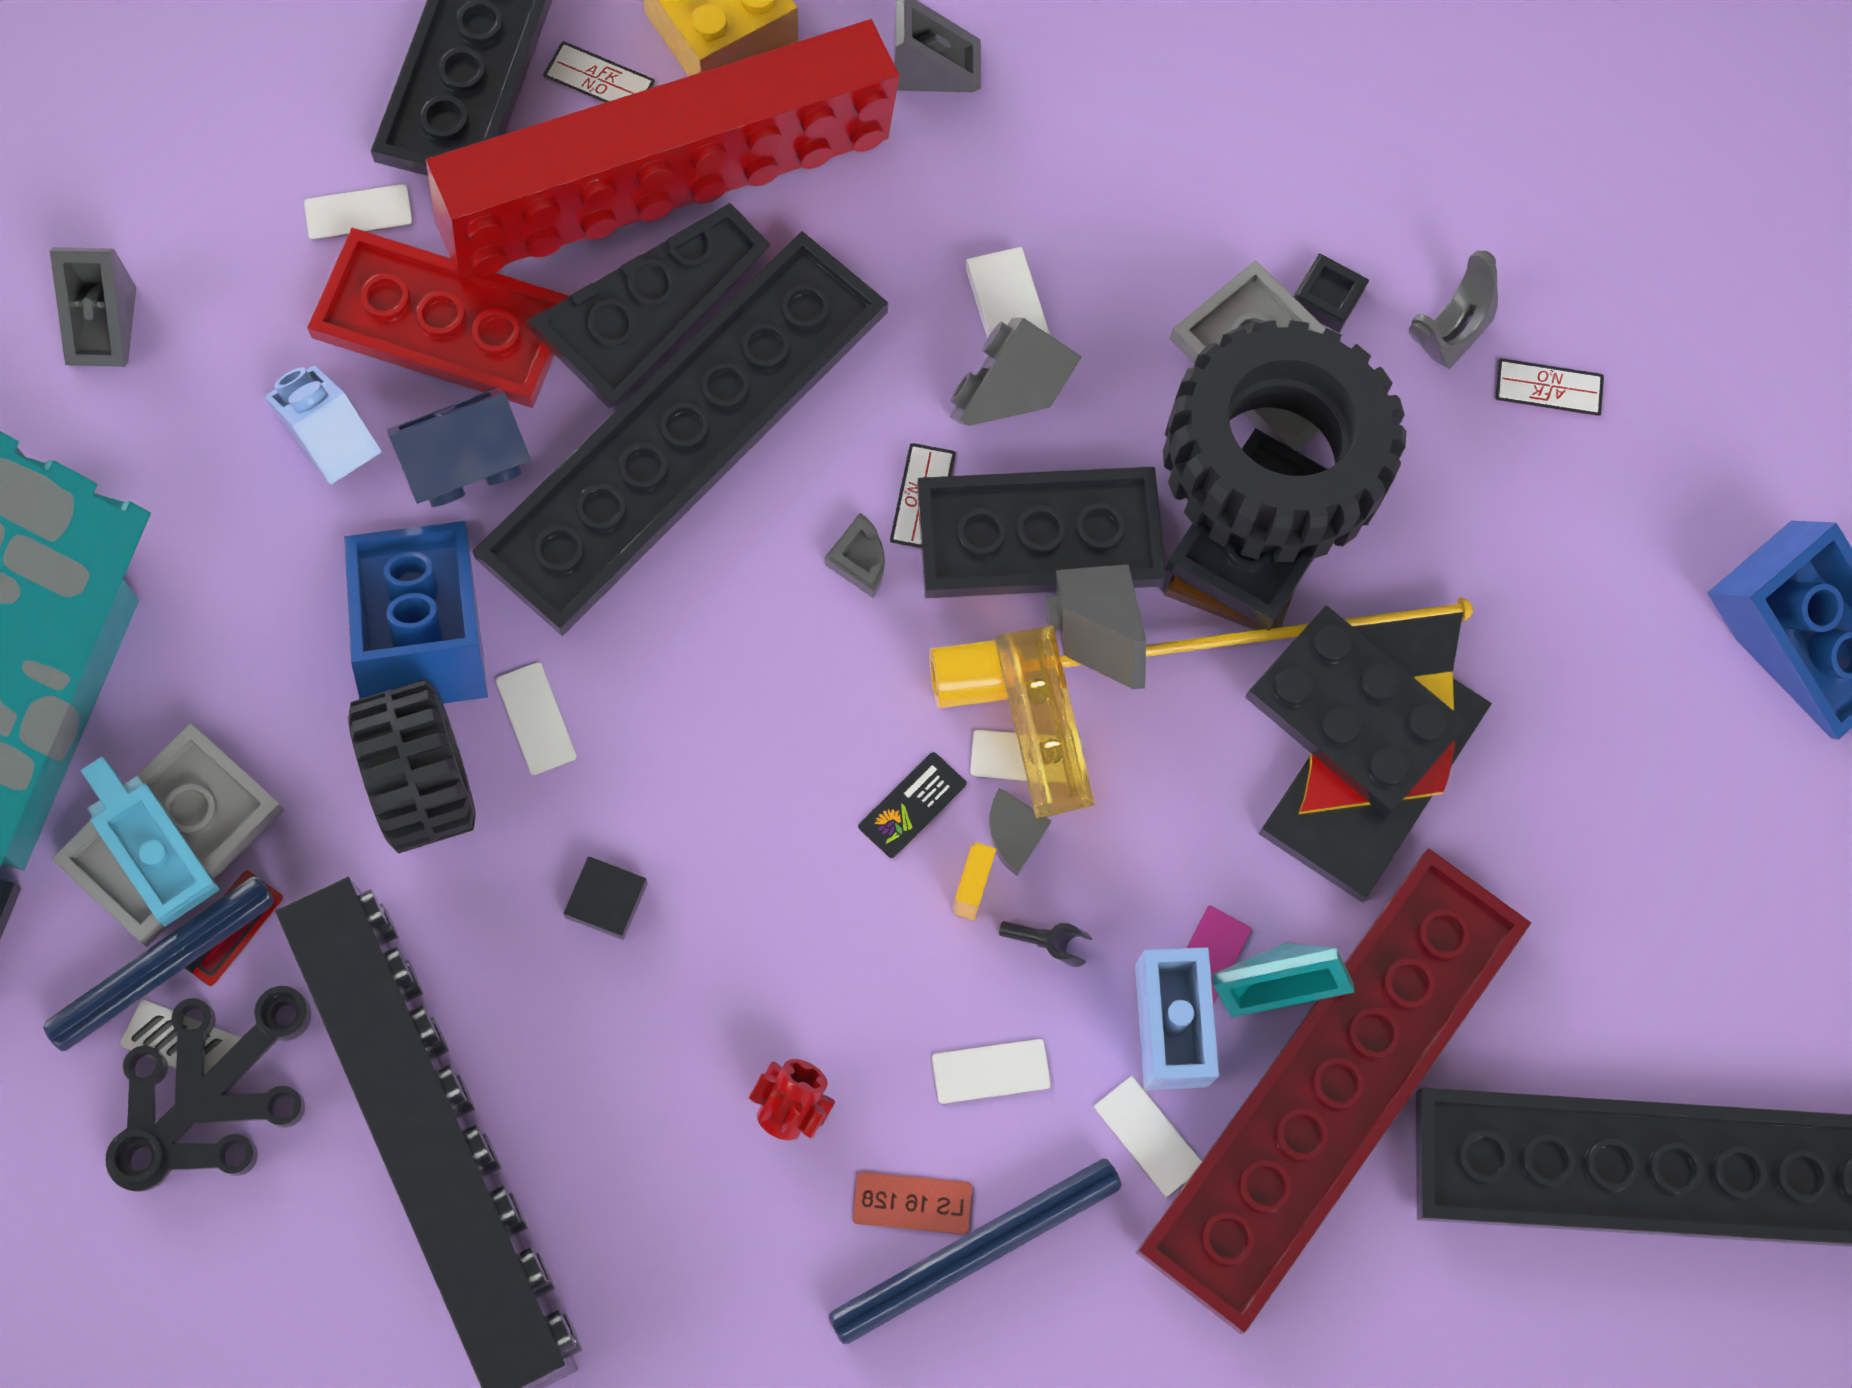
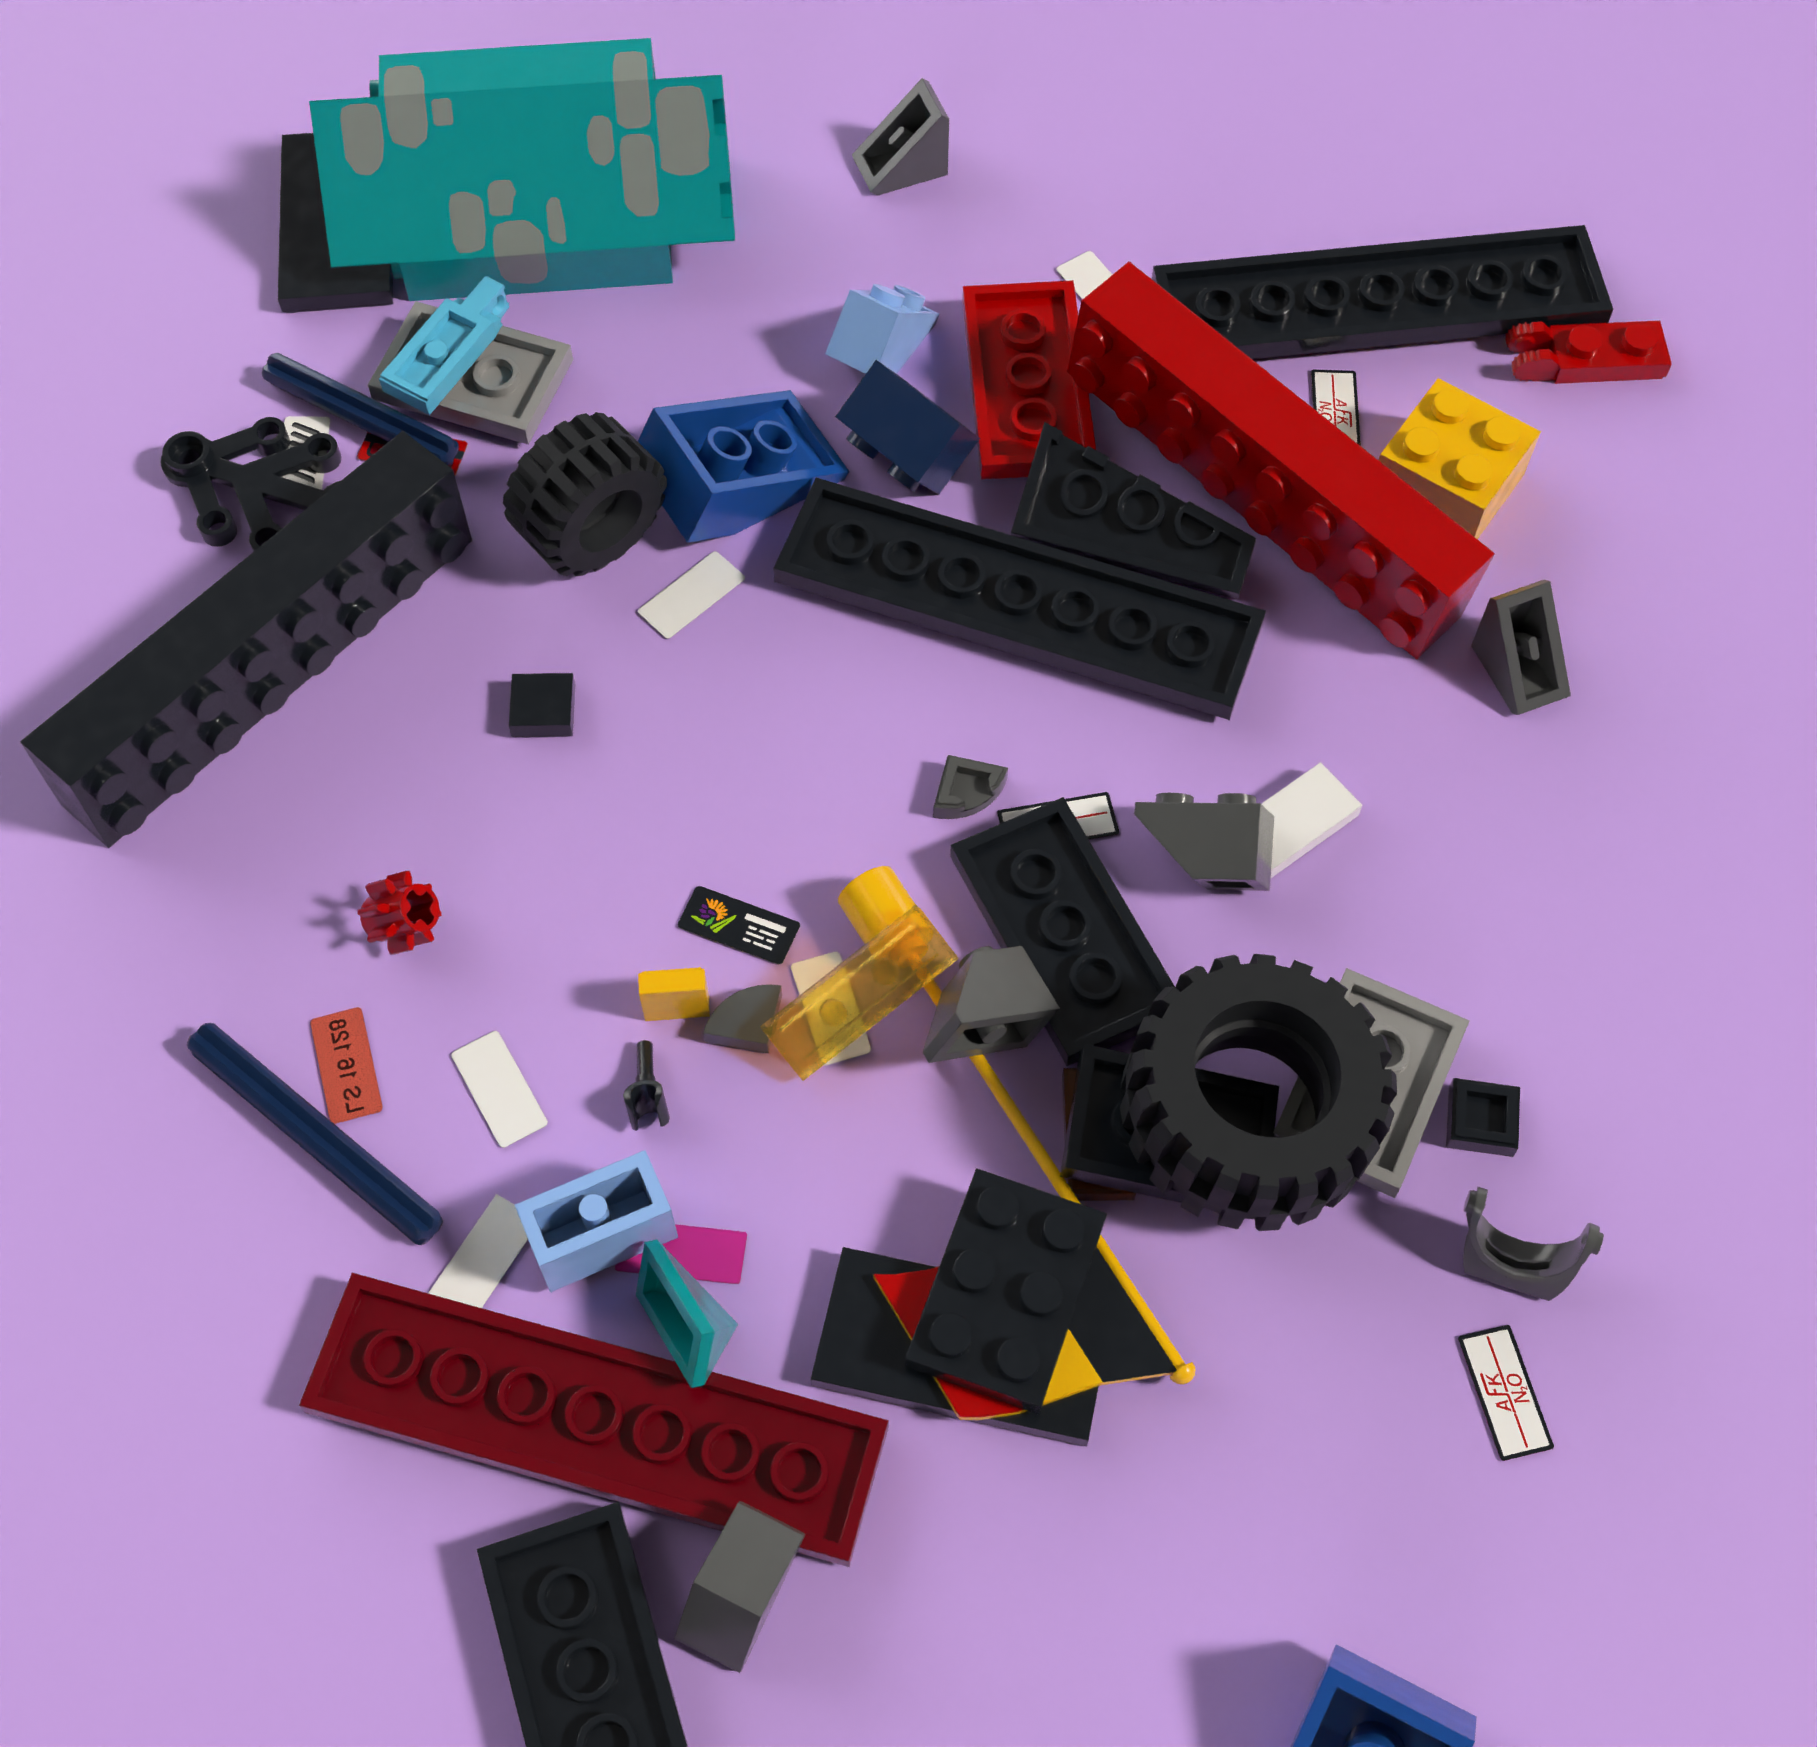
camera: 75 degrees right, 10 degrees down
(1525, 1012) = (738, 1586): none -> dark grey slope

